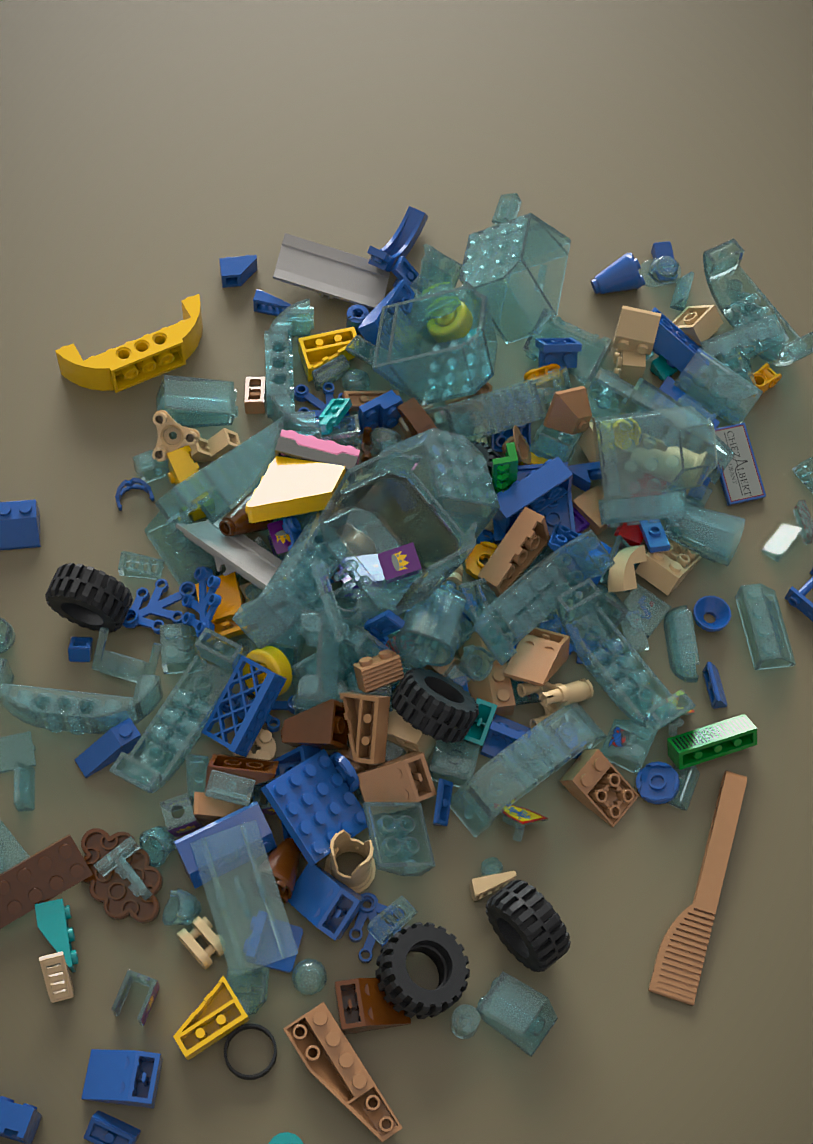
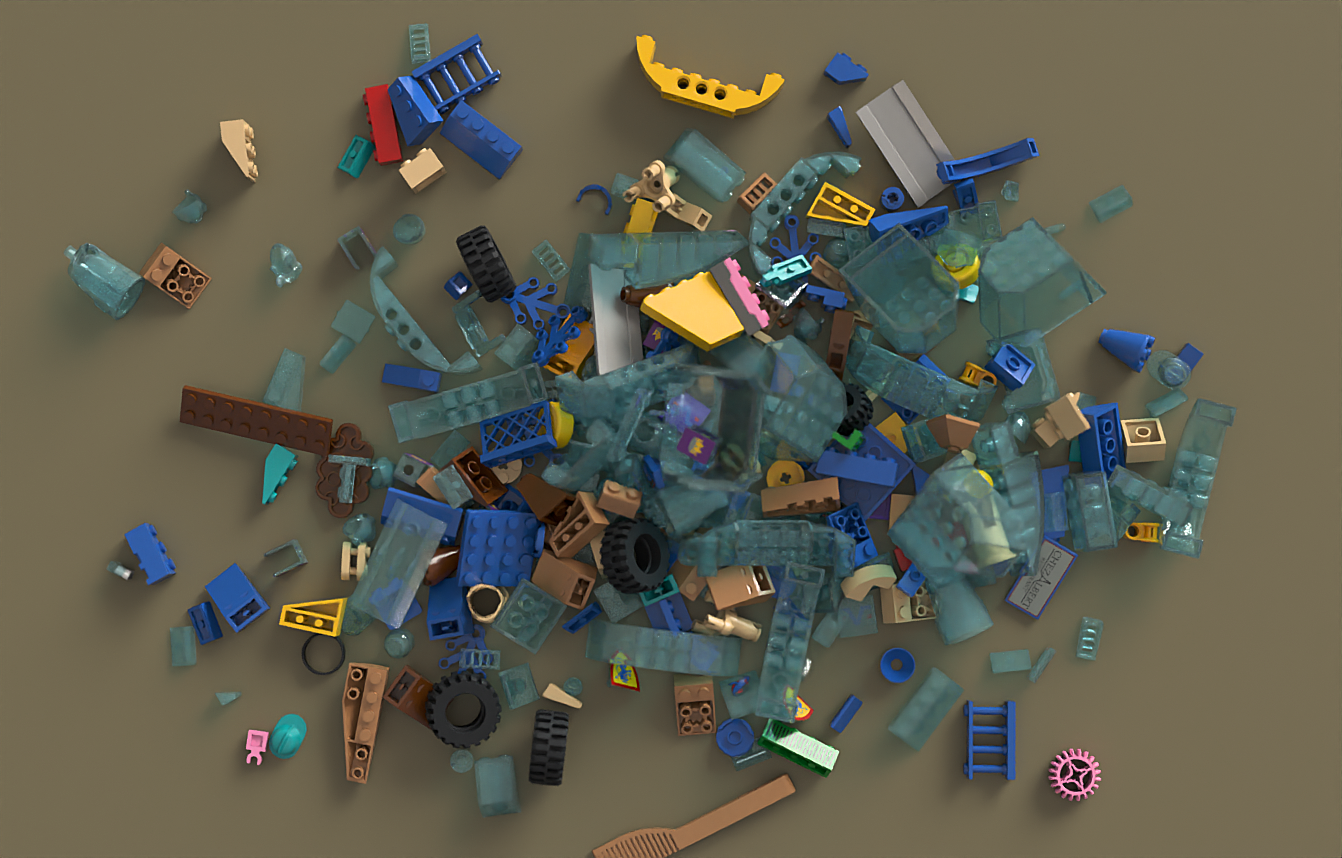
camera: 50 degrees right, 25 degrees up
(59, 990) = (250, 502): tan slope -> none
(446, 911) = (518, 685): none -> clear light blue slope
(521, 446) = (892, 419): medium nougat piece -> none
(681, 643) = (856, 662): clear light blue brick -> none

